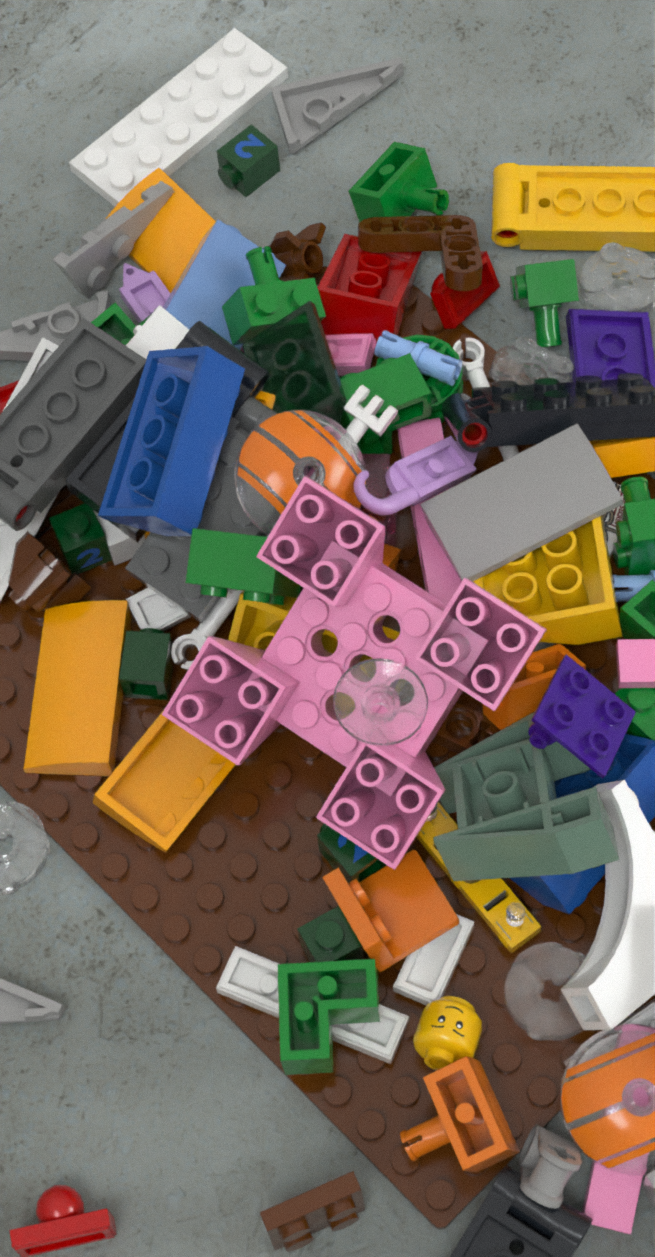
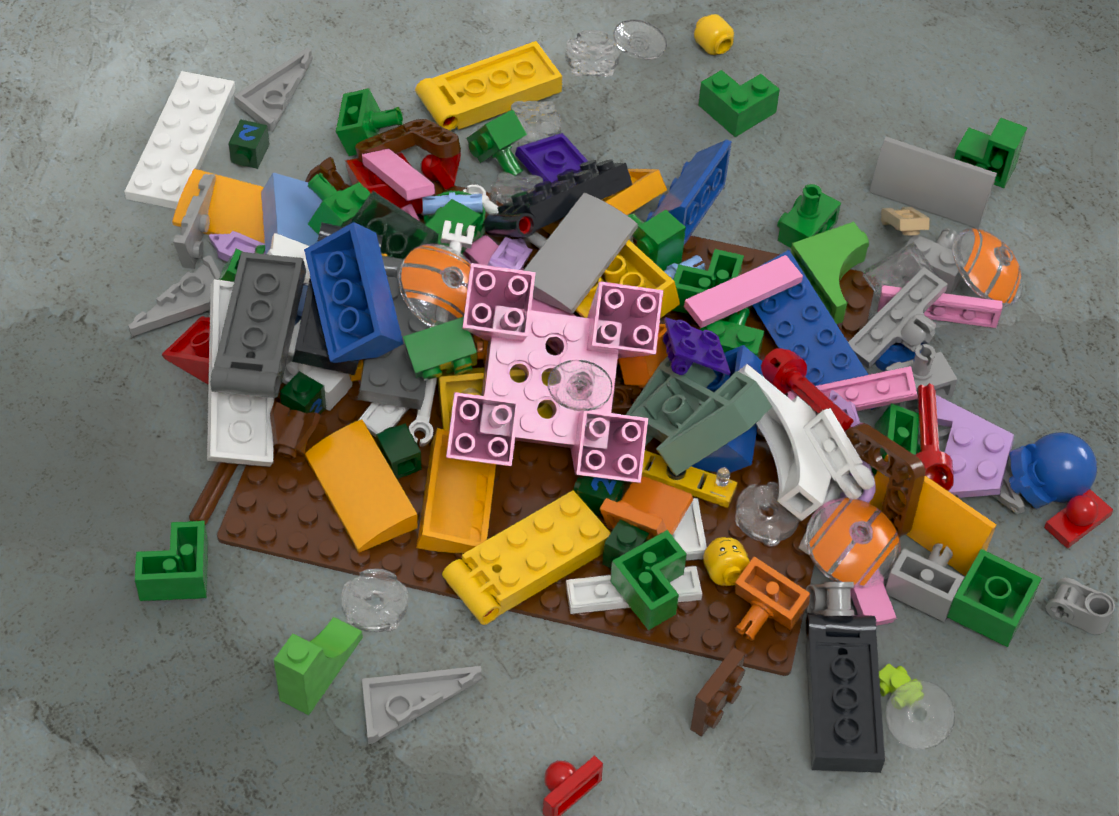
camera: 40 degrees left, 10 degrees down
(206, 890) = (527, 557): none -> yellow hinge
(371, 288) = (398, 174): none -> bright pink tile

